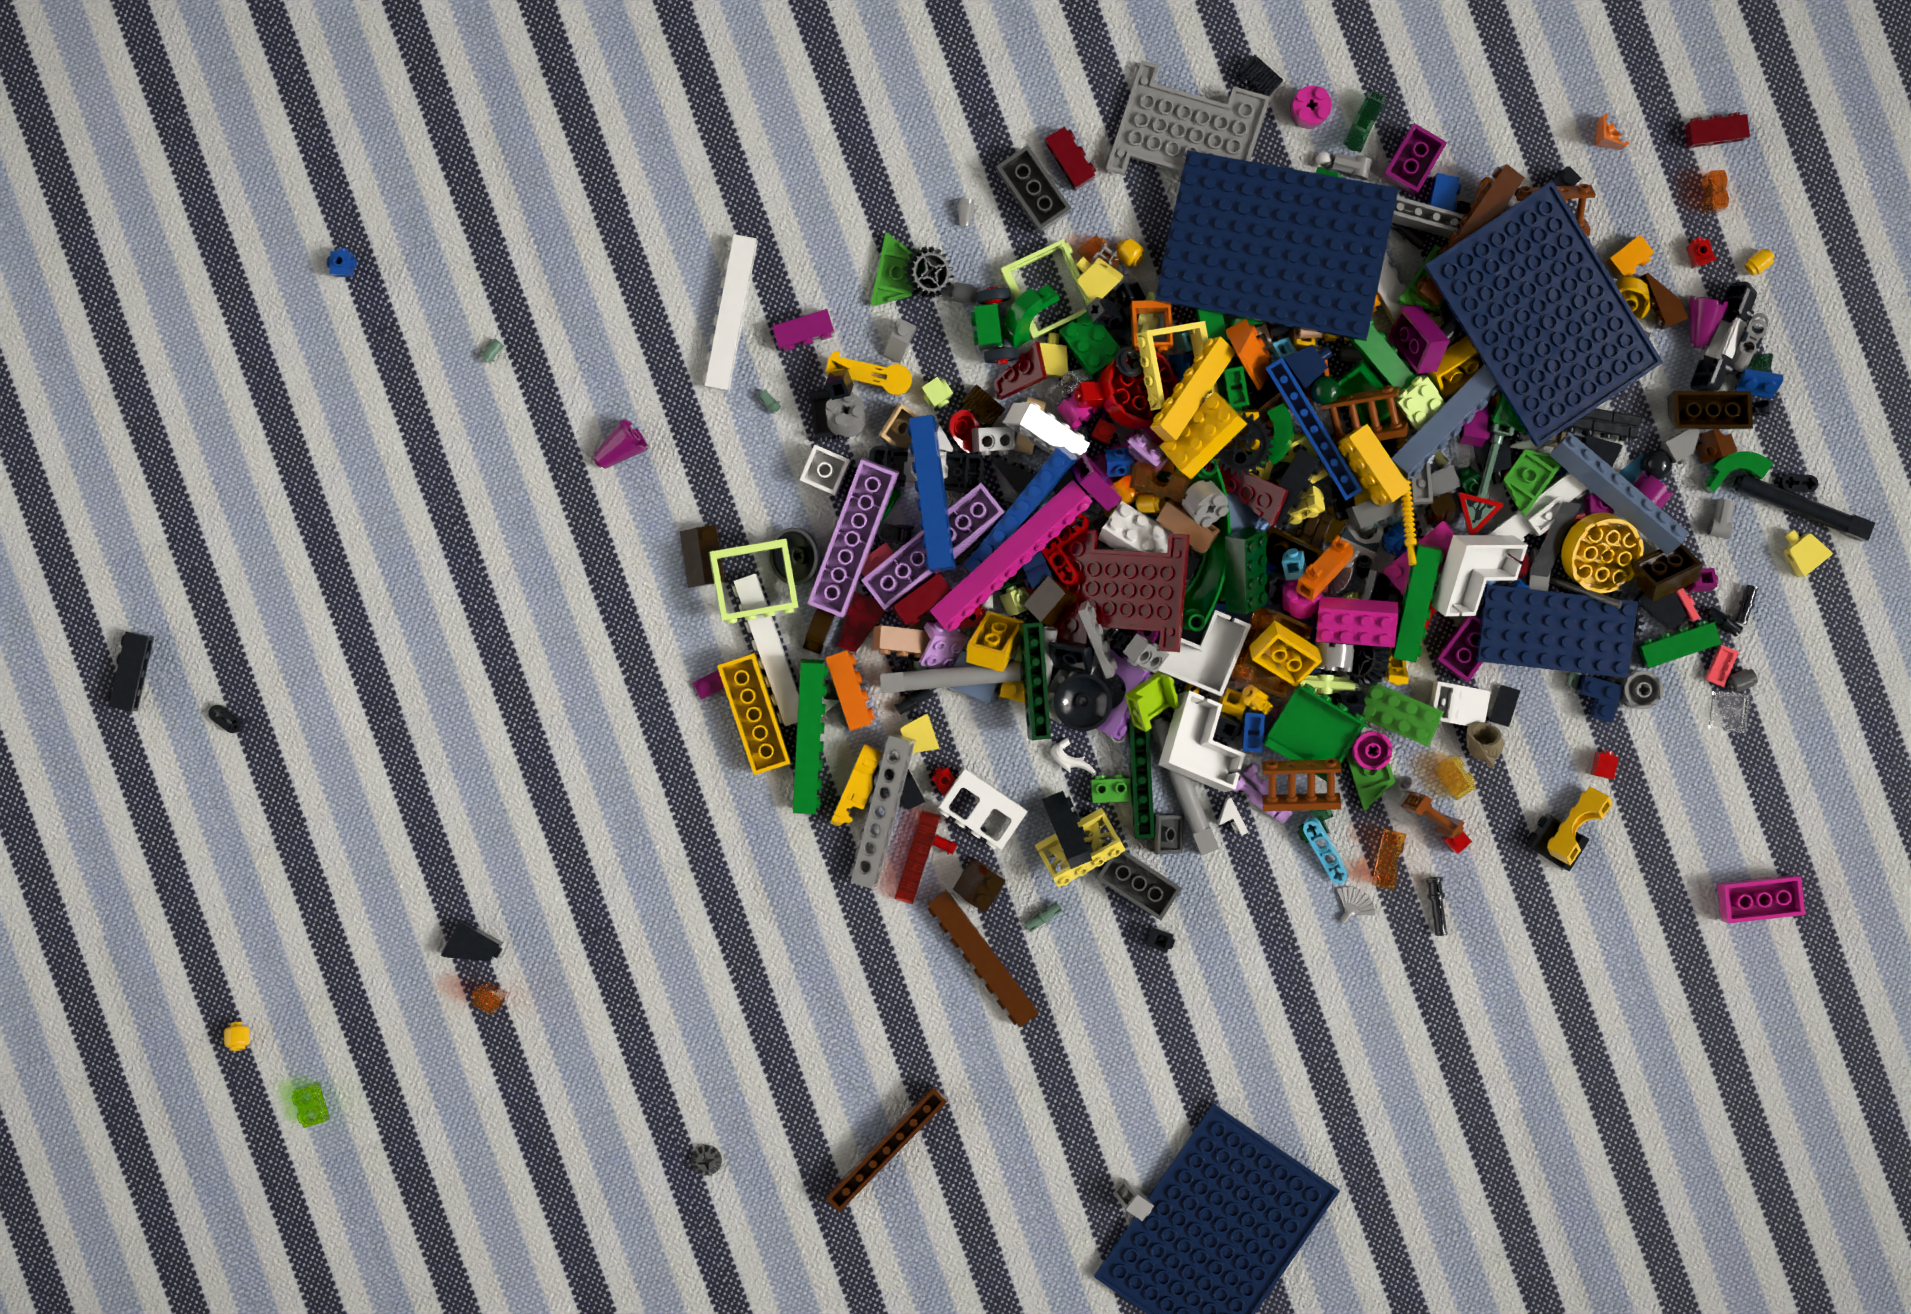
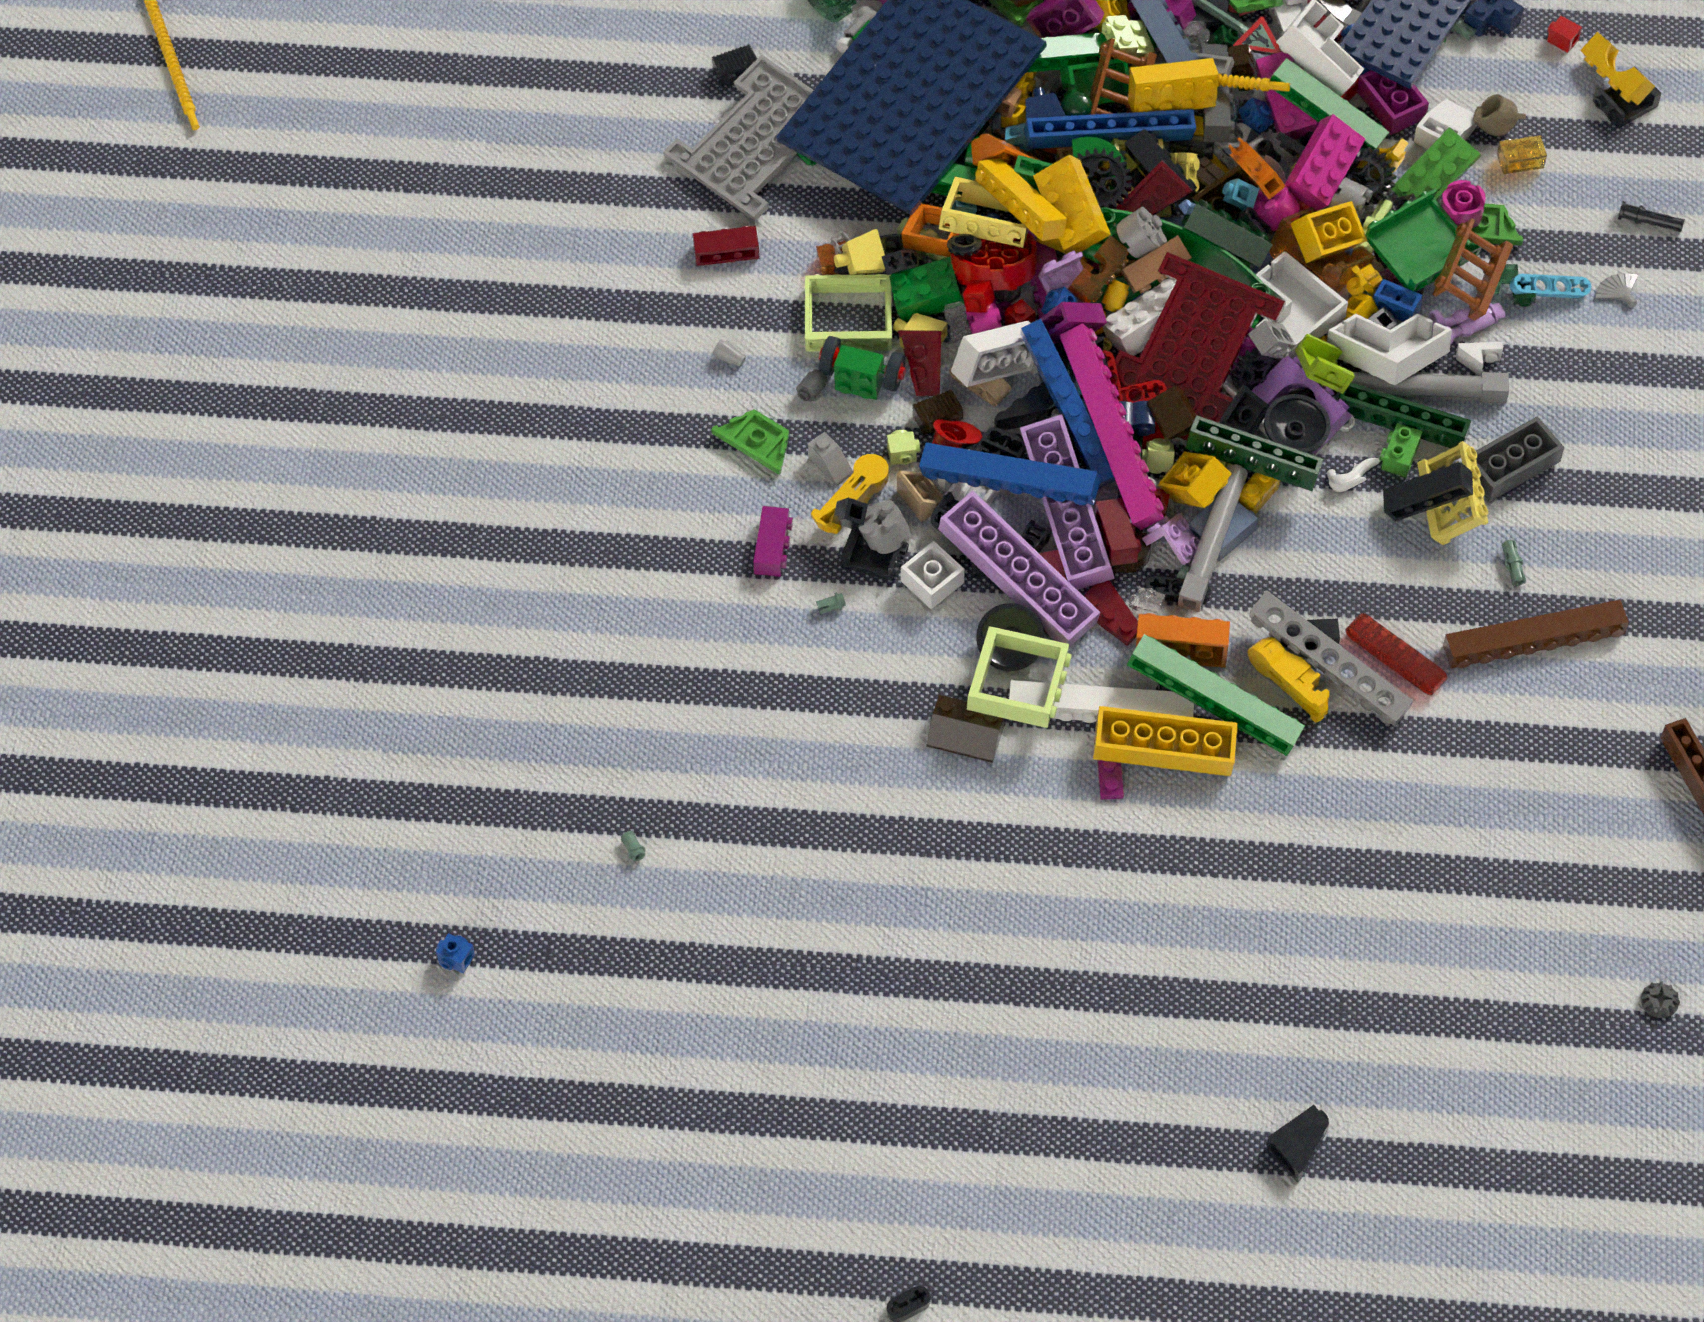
camera: 65 degrees left, 30 degrees down
(488, 998) = (1372, 1141): clear orange brick -> none
(620, 445) = (804, 757): magenta cone -> none
(731, 312) = (718, 600): white brick -> none
(818, 631) = (1103, 645): dark brown brick -> none
(900, 641) = (1152, 570): brick -> none
(913, 700) = (1221, 593): black pin -> none
(922, 732) = (1253, 590): light yellow torso -> none
(932, 279) = (774, 404): black gear -> none
(943, 779) = (1323, 595): red brick -> none
(944, 844) = (1397, 620): red pin -> none
(979, 884) = (1454, 599): dark brown slope -> none
(988, 800) = (1364, 554): white window -> none
(993, 440) = (978, 412): light grey brick -> none
(1023, 311) = (861, 328): green arch -> none
(1033, 189) = (740, 284): dark grey brick -> none
(1095, 635) = (1228, 380): light grey plate -> none
(1130, 252) = (849, 225): yellow head -> none
(1151, 939) = (1583, 466): black brick -> none
(1168, 834) = (1481, 423): dark grey slope -> none
(1304, 115) = (788, 34): dark pink brick -> none
(1386, 864) = (1568, 230): clear orange arch -> none
(1402, 783) = (1510, 195): light grey hinge -> none
(1420, 804) = (1540, 166): dark orange fence -> none
(1458, 843) = (1587, 176): red brick -> none
(1505, 705) = (1465, 93): black tile -> none

